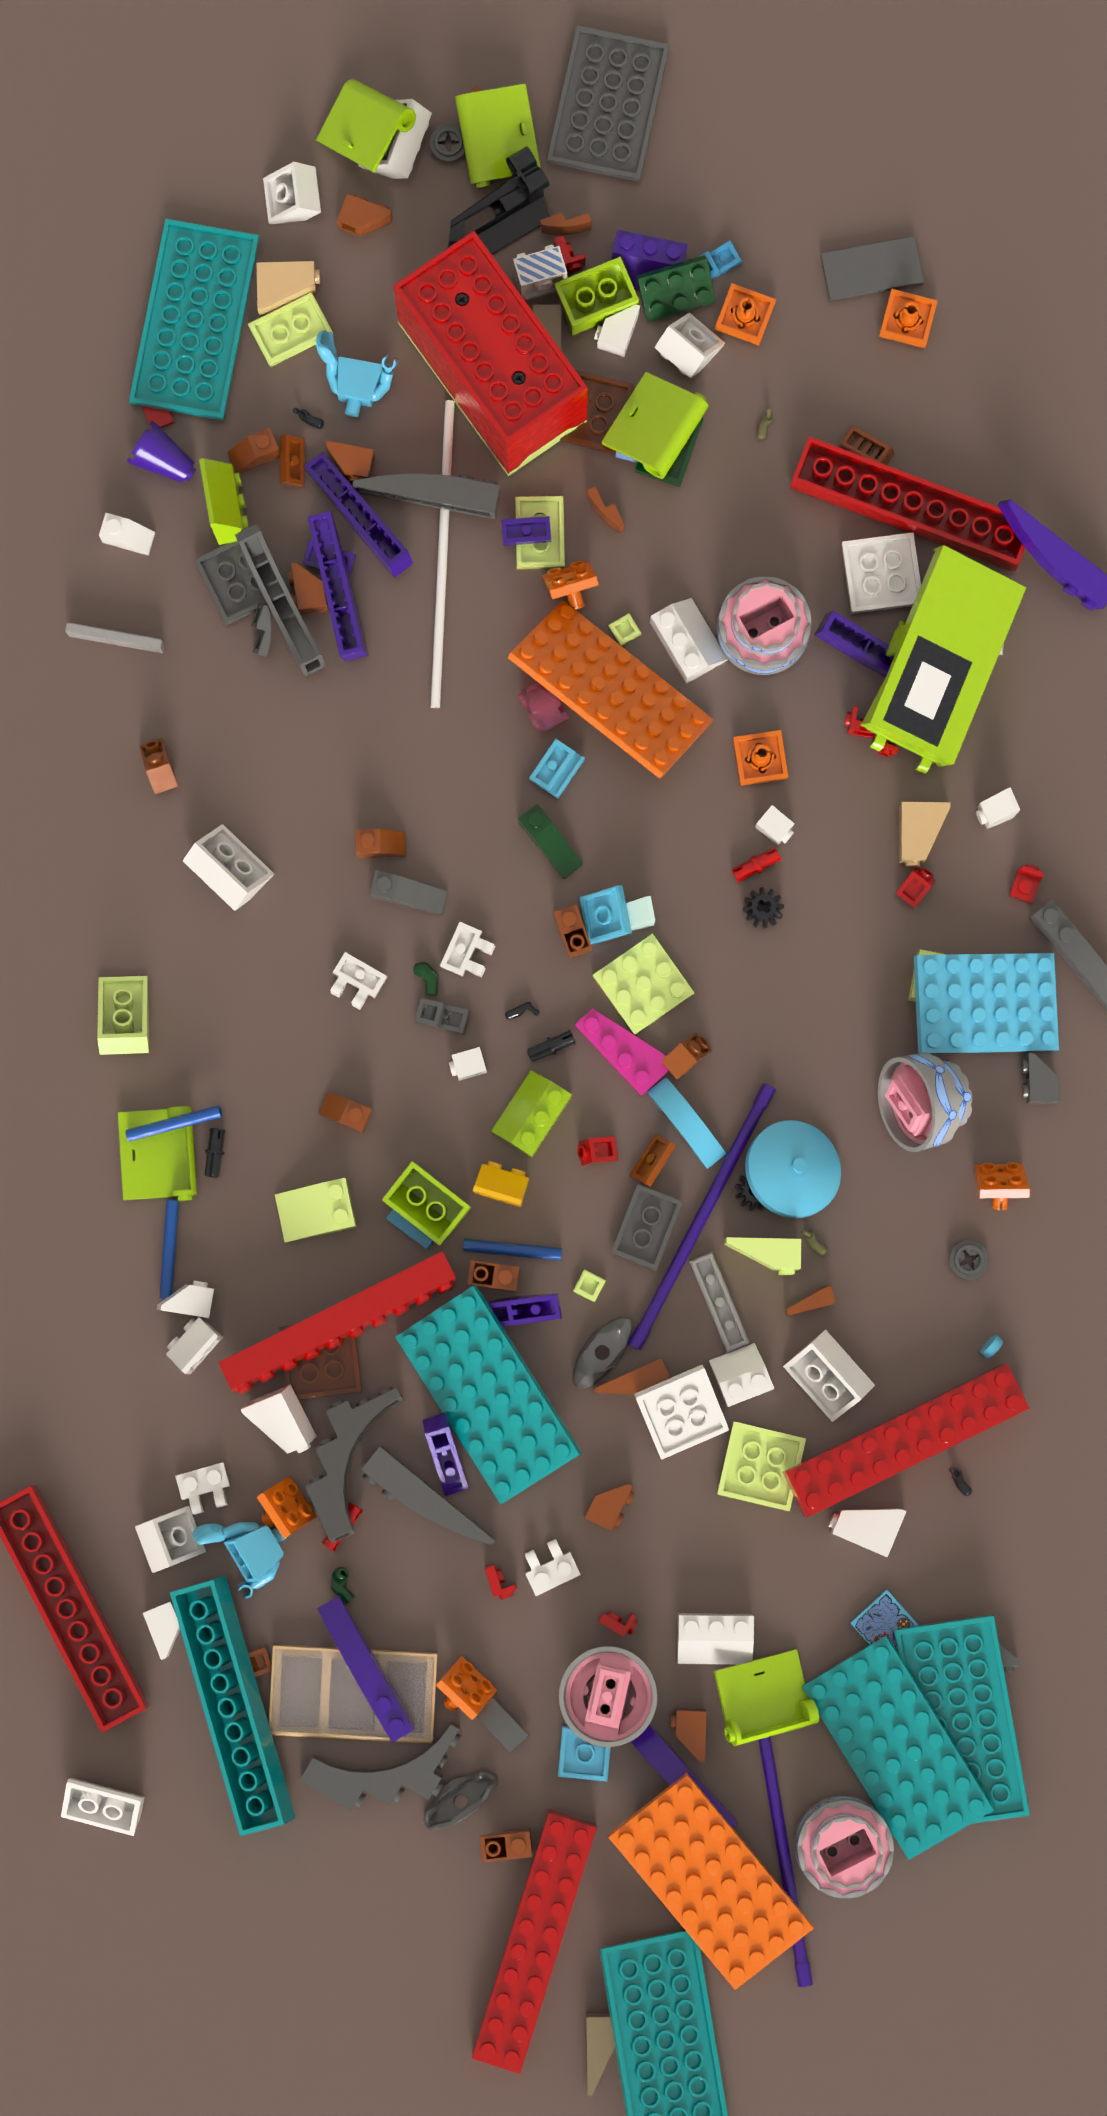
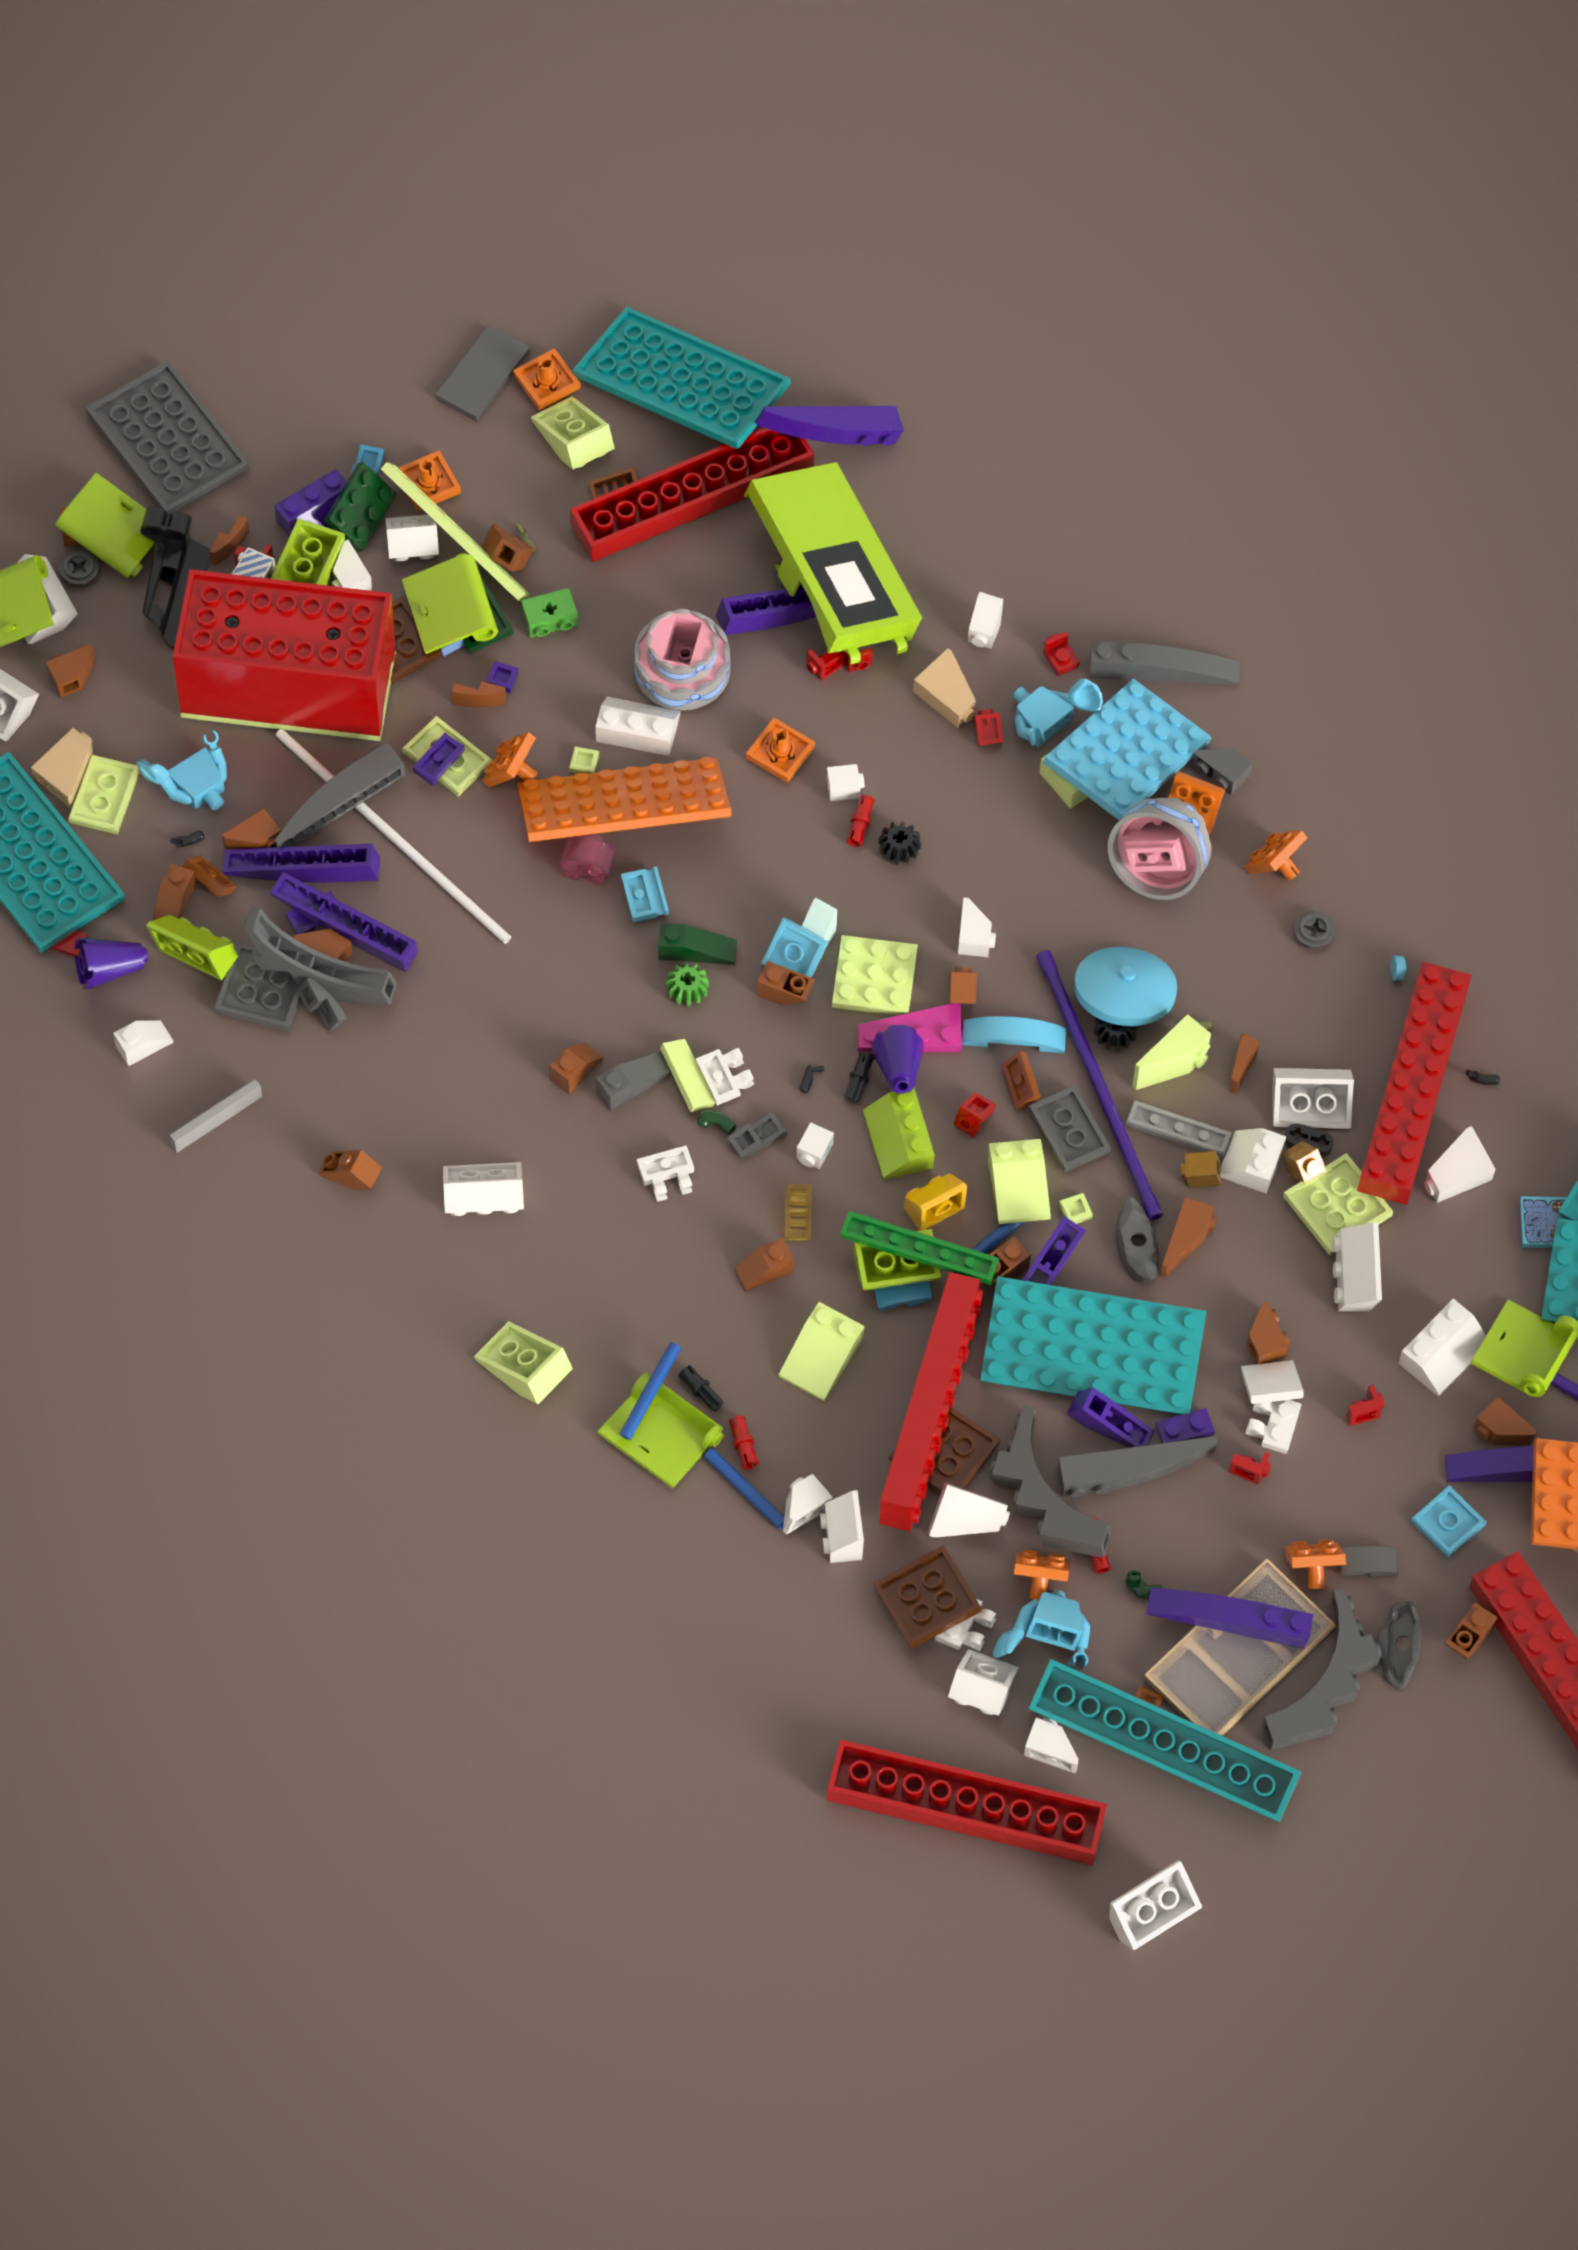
camera: 50 degrees left, 20 degrees down
(195, 1447) = (927, 1597): none -> reddish brown plate
(200, 1217) = (743, 1442): none -> red pin
(413, 1104) = (798, 1195): none -> clear yellow slope
(443, 926) = (687, 1075): none -> yellowish green tile
(443, 1213) = (919, 1247): none -> green plate
(489, 1509) = (1185, 1427): none -> dark purple plate
(522, 862) = (687, 993): none -> bright green gear
(568, 1231) = (1019, 1181): none -> yellowish green slope
(575, 1541) = (1272, 1382): none -> white tile
(583, 1065) = (898, 1056): none -> dark purple cone
(630, 1701) = (1405, 1431): bright pink piece -> none
(636, 512) = (503, 675): none -> dark purple plate
(681, 1412) = (1241, 1219): white plate -> none
(698, 1348) = (1201, 1169): none -> pearl gold brick
(710, 487) = (549, 613): none -> bright green brick
(715, 1527) = (1357, 1268): none -> white slope
(717, 374) = (455, 531): none -> yellowish green tile
(739, 421) = (506, 548): none -> dark orange slope
(741, 1023) = (975, 931): none -> white slope
(769, 1415) = (1303, 1161): none -> pearl gold brick
(799, 1398) = (1311, 1136): none -> black beam
(881, 377) = (574, 432): none -> yellowish green slope
(881, 572) = (723, 553): white plate -> none
(968, 917) = (1048, 711): none -> medium azure torso
(991, 1086) = (1199, 795): none -> orange plate
(995, 413) = (681, 377): none -> teal plate

